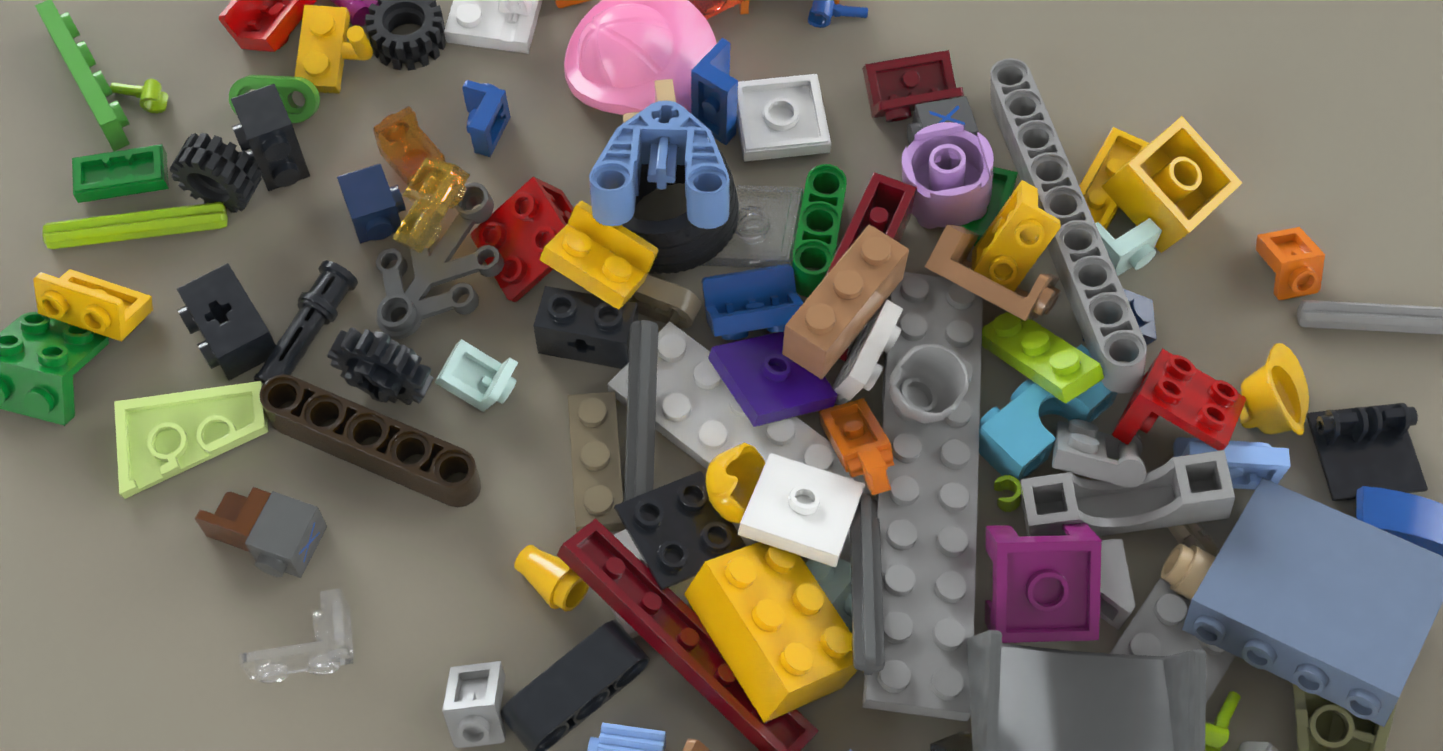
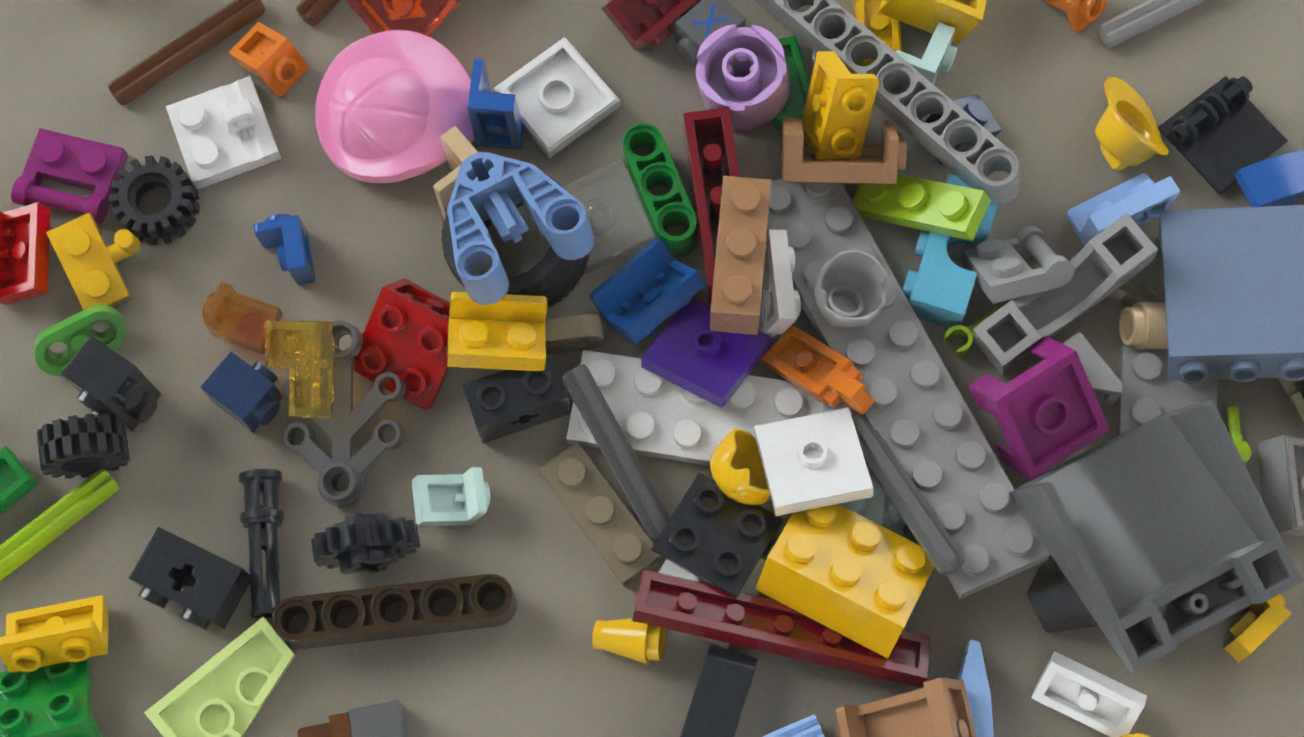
camera: 25 degrees left, 10 degrees up
(1184, 398) = (1064, 179): red bracket -> none

